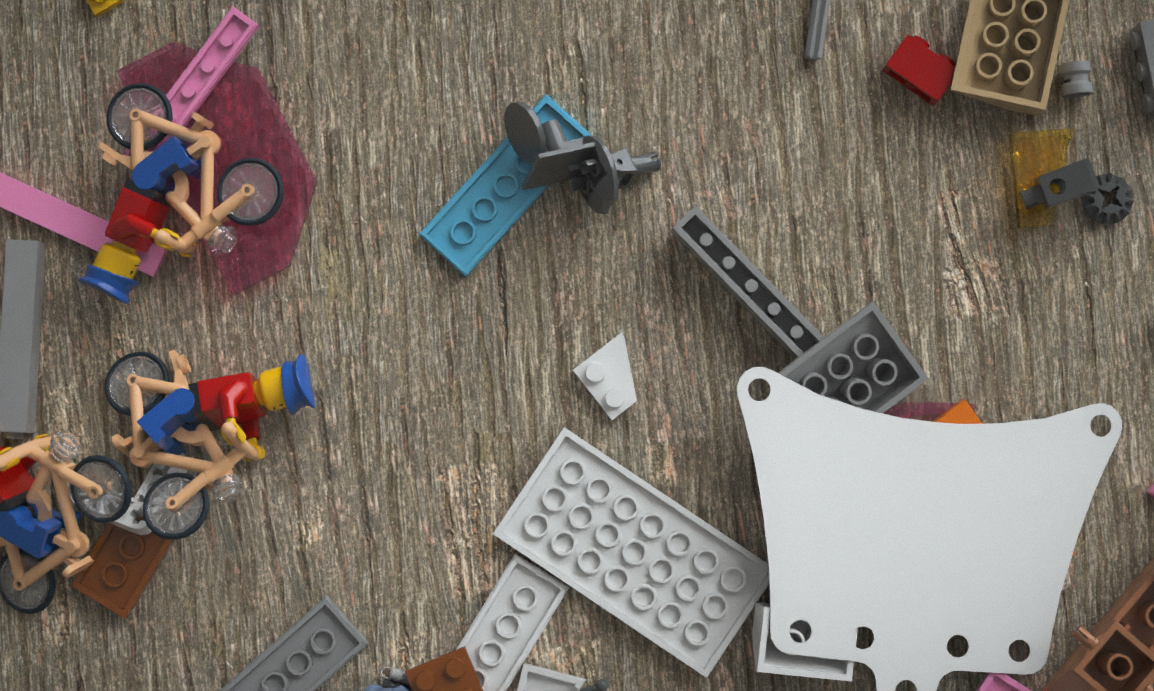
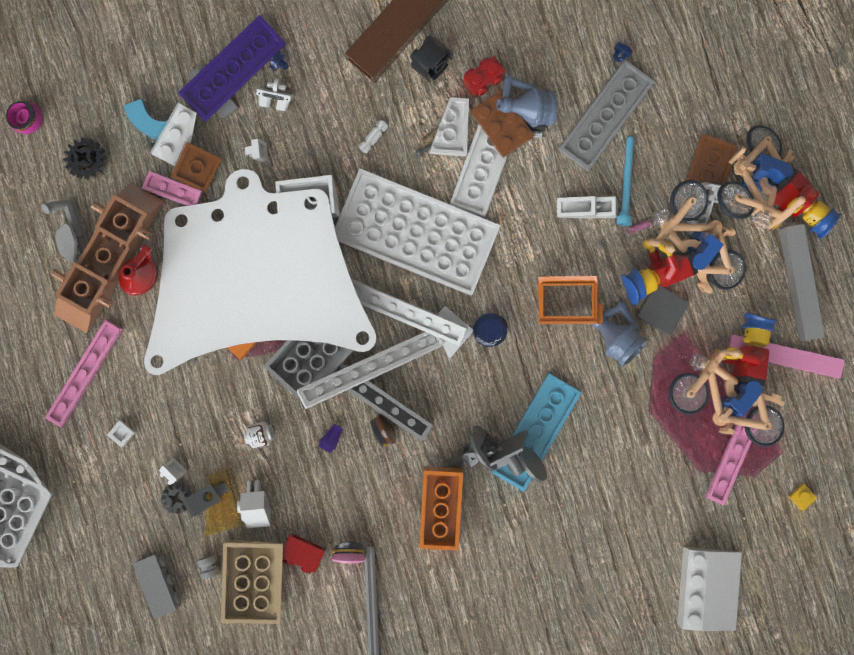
camera: 165 degrees right, 0 degrees up
(256, 339) = (663, 310): none -> dark grey tile
(264, 485) = (640, 226): none -> bright pink piece
(284, 506) = (625, 217): none -> medium azure piece
(337, 302) = (621, 341): none -> sand blue piece
(342, 534) = (587, 207): none -> white slope
(365, 364) = (597, 308): none -> orange piece
(545, 364) = (490, 330): none -> clear blue piece
(674, 418) = (409, 313): none -> white plate
(686, 94) = (441, 508): none -> orange brick
(753, 236) = (383, 431): none -> reddish brown piece
(756, 339) = (368, 369): none -> white plate
(840, 242) = (330, 439): none -> dark purple cone
(848, 53) = (348, 553): none -> piece
(955, 271) = (259, 435): none -> white head
(985, 158) = (254, 506): none -> white brick
(1098, 572) = (138, 273): none -> red piece
(1106, 242) = (172, 471): none -> white tile

